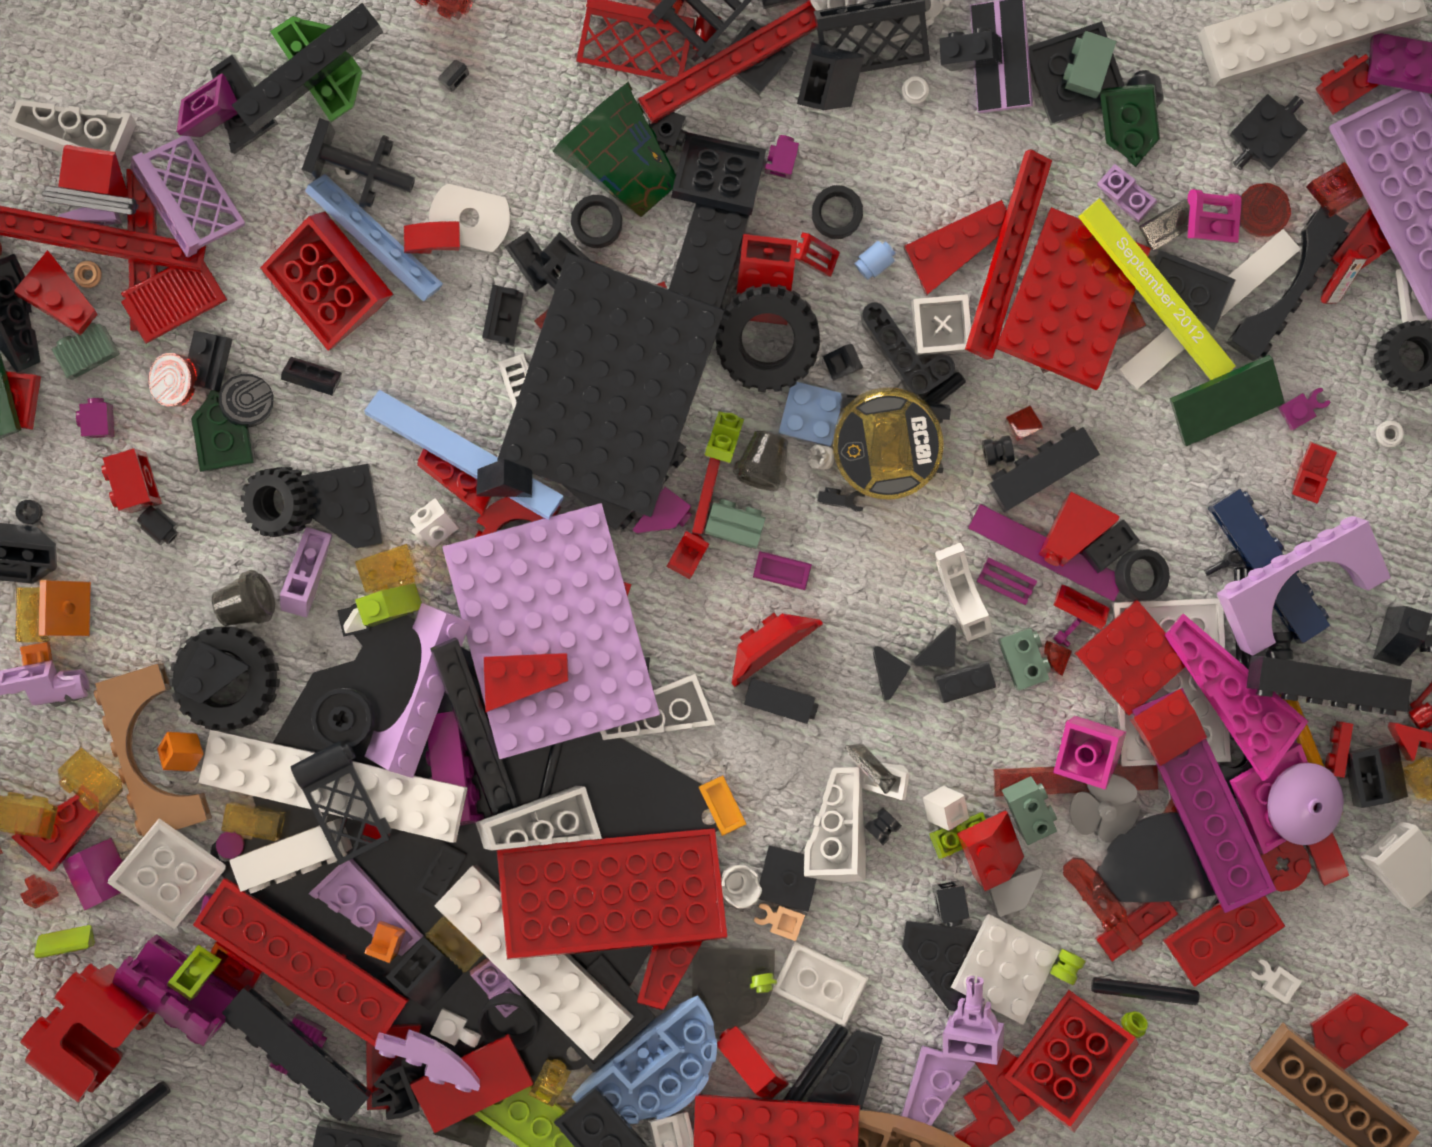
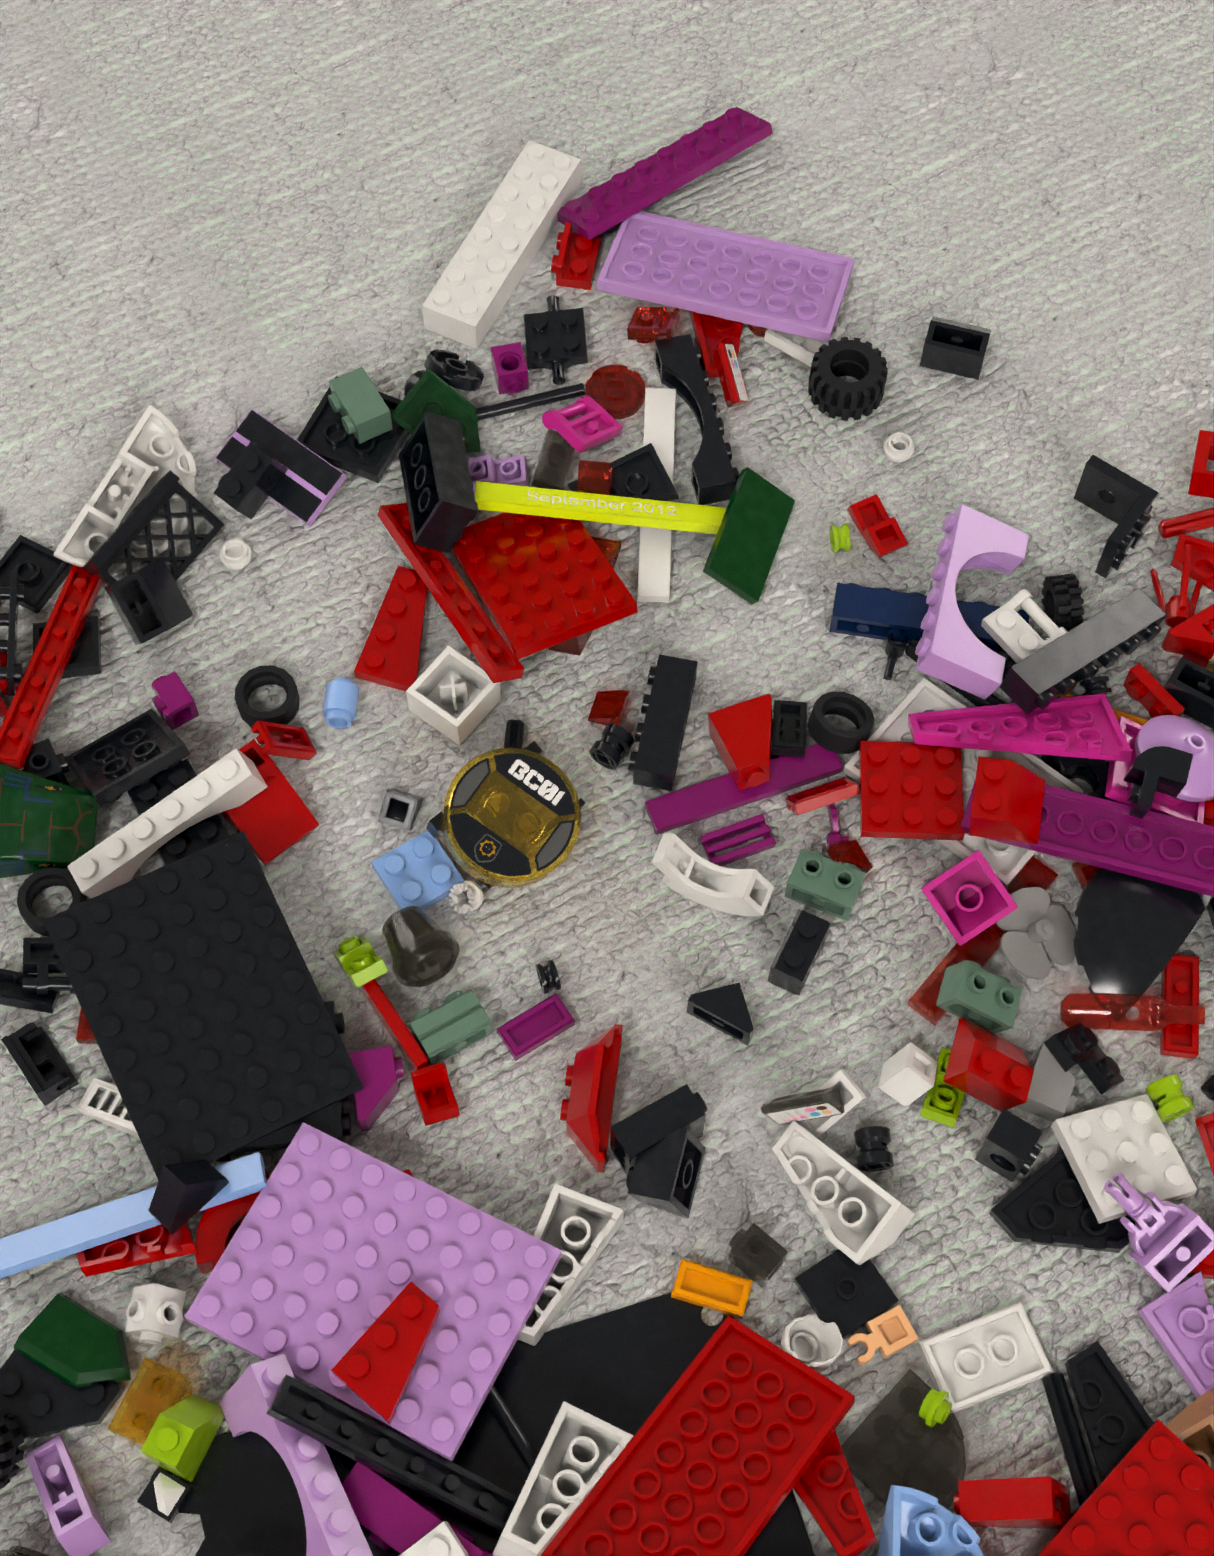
camera: 45 degrees left, 25 degrees down
(380, 497) = (75, 1344): none -> dark green tile
(719, 251) = (215, 790): none -> white arch
(758, 729) = (668, 1173): none -> black slope
(762, 814) = (756, 1254): none -> clear smoke brick
(768, 374) = (326, 796): black tyre -> none
(816, 551) = (548, 976): none -> black bush
(833, 498) = (518, 917): black plate -> none
(902, 346) = (437, 745): black beam -> none
(940, 651) = (749, 949): black slope -> none
(1050, 895) = (1080, 1048): none -> black plate
(1076, 174) = (437, 482): none -> black brick
(1174, 268) = (594, 477): none -> clear red slope
(1176, 94) = (454, 372): none -> black tile
(1203, 162) = (530, 401): none -> black bar
(1219, 117) = (509, 368): none -> magenta brick
(1269, 800) = (1157, 770): none -> black brick
(1280, 457) = (839, 538): none -> lime bush
(1300, 409) = (812, 493): magenta plate -> none
(1302, 632) = (1014, 632): none -> white plate
(1314, 710) = (1096, 686): none -> black bush
(1356, 641) = (1063, 600): none -> black tyre
(1401, 634) = (1089, 555): black slope -> none

